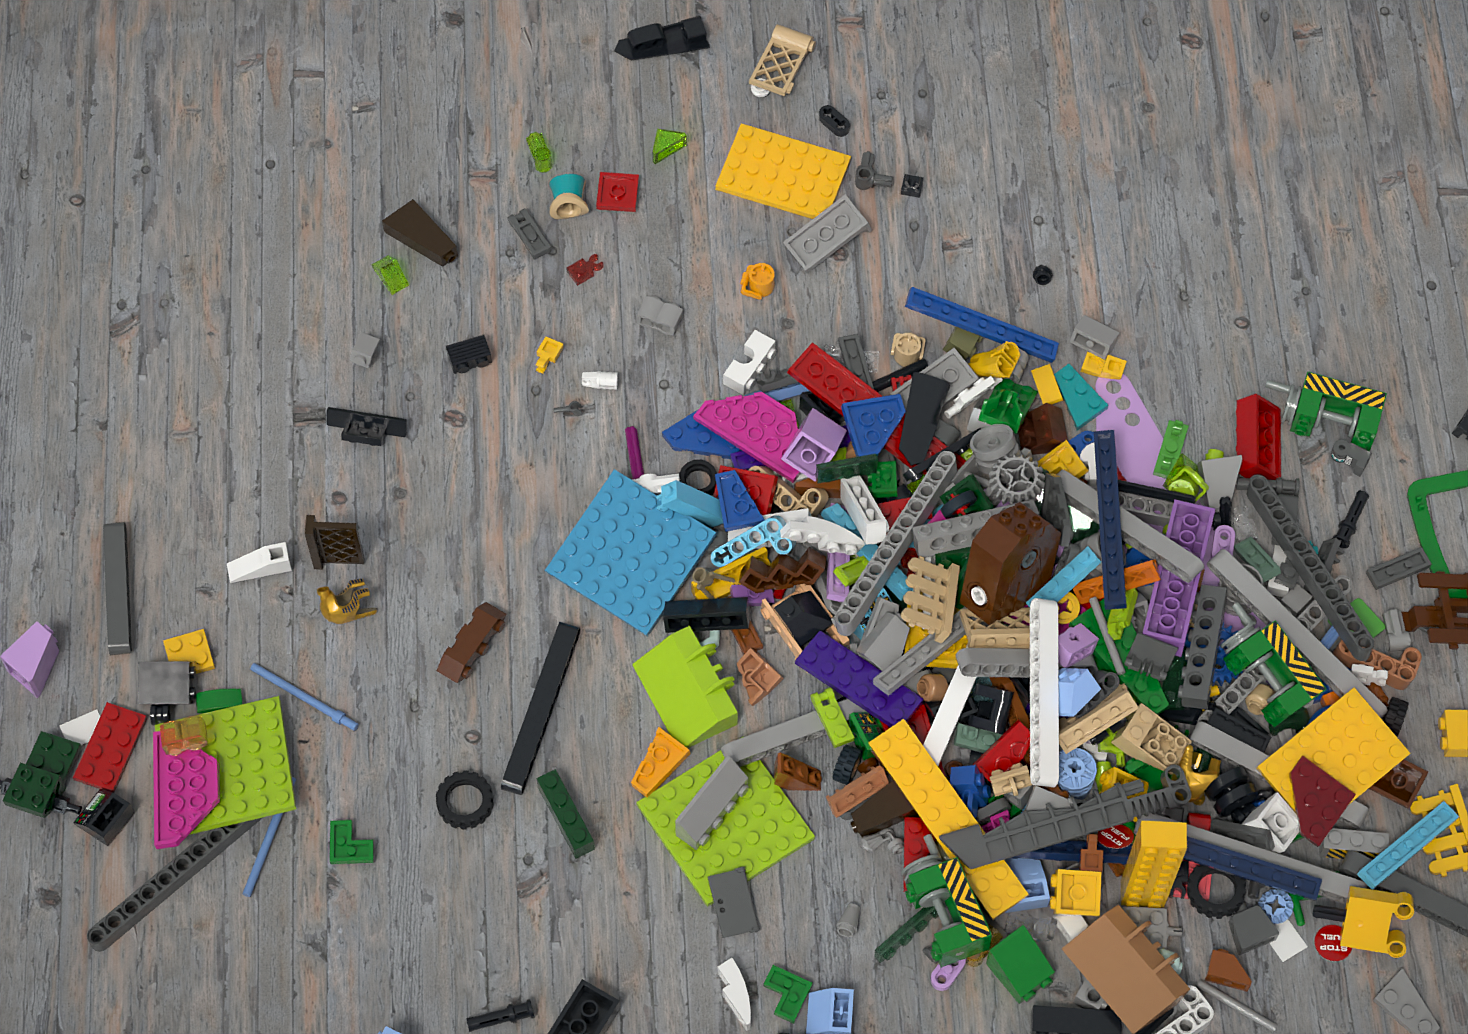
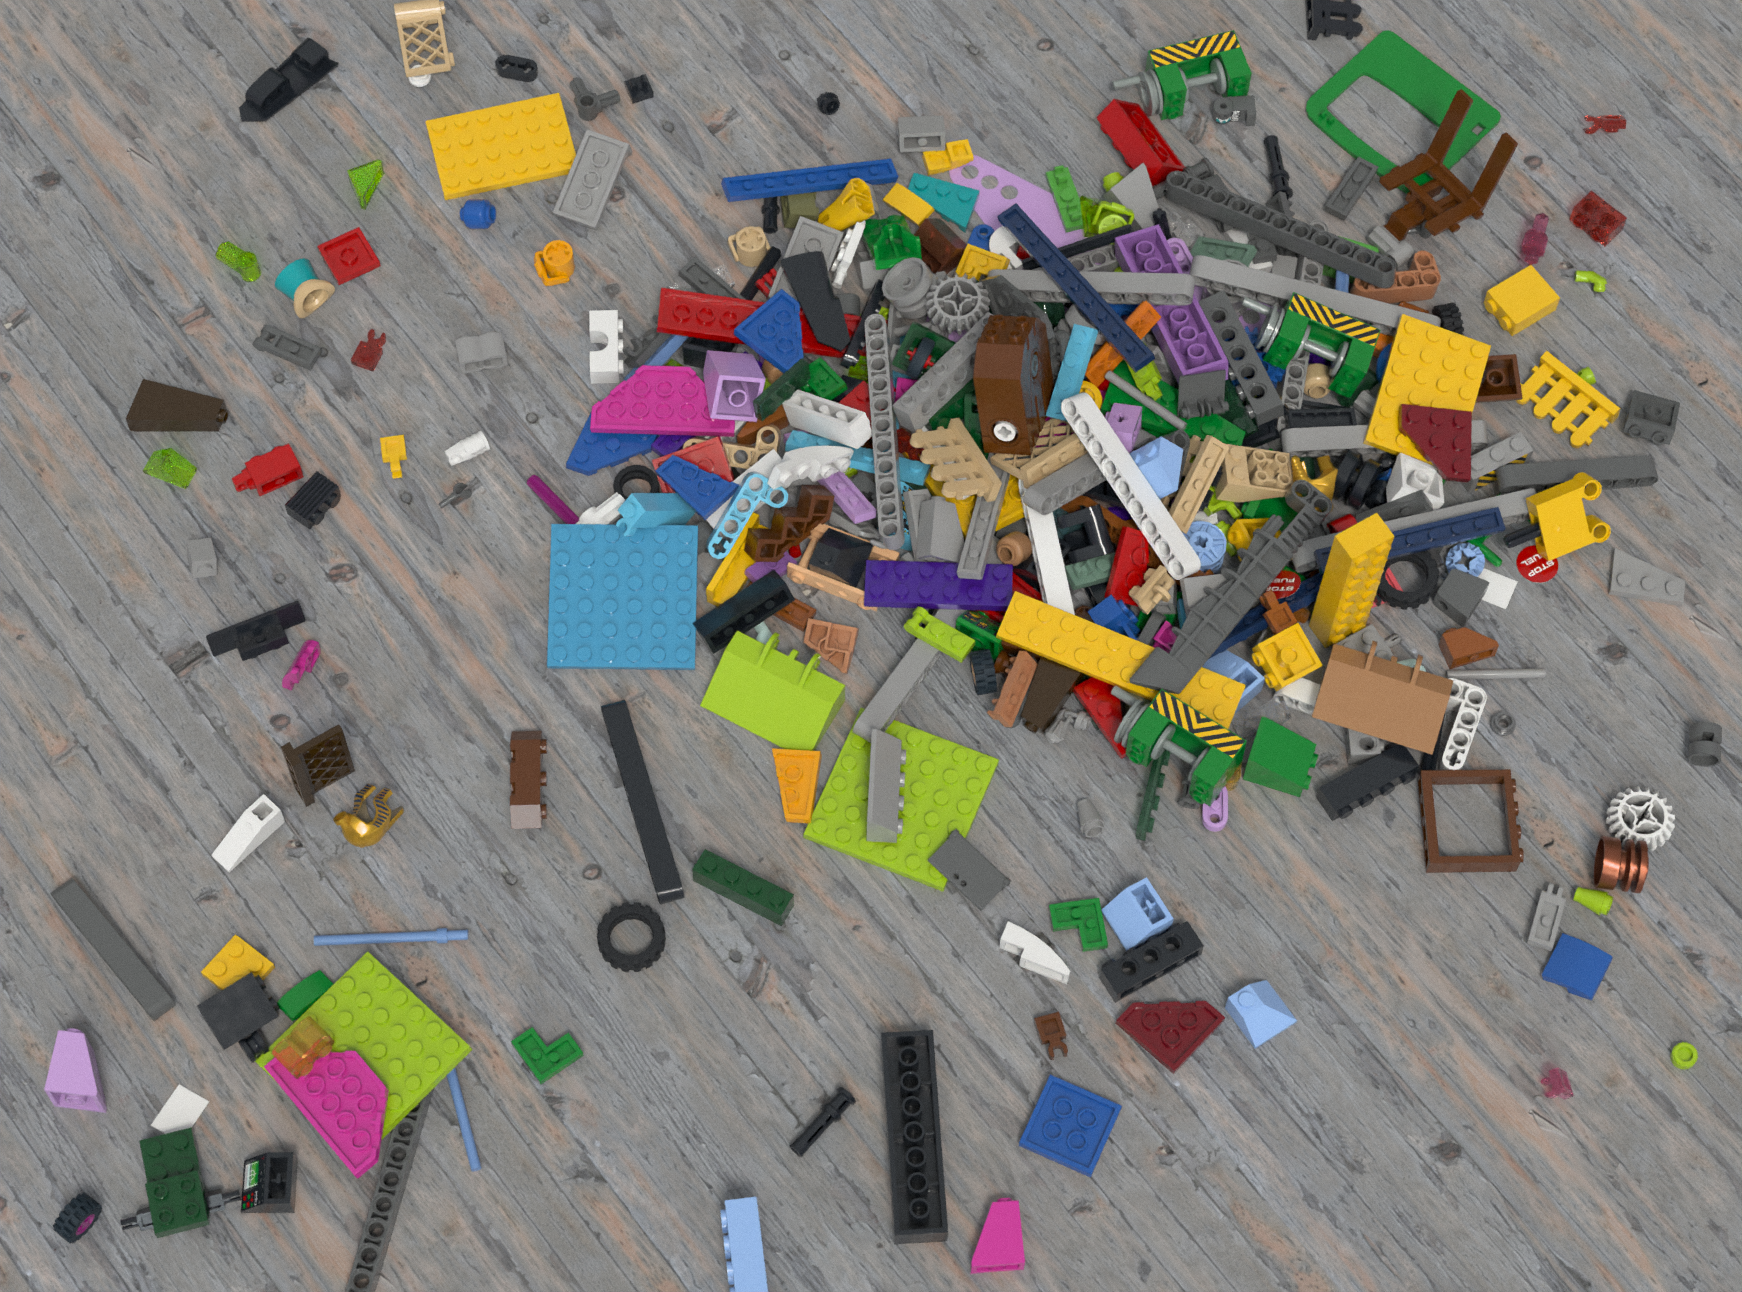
camera: 35 degrees left, 0 degrees up
(110, 747) = (223, 1113): red plate -> none
(383, 464) = (303, 662): none -> dark pink slope
(454, 315) = (269, 471): none -> red hinge
(705, 578) = (720, 575): dark tan plant -> none
(729, 213) = (478, 213): none -> blue head
(795, 775) = (939, 712): dark orange slope -> none
(850, 572) = (860, 483): lime tile -> none
(941, 331) = (770, 211): none -> black pin
(1367, 674) = (1401, 297): white plate -> none
(1408, 845) = (1546, 431): medium azure plate -> none

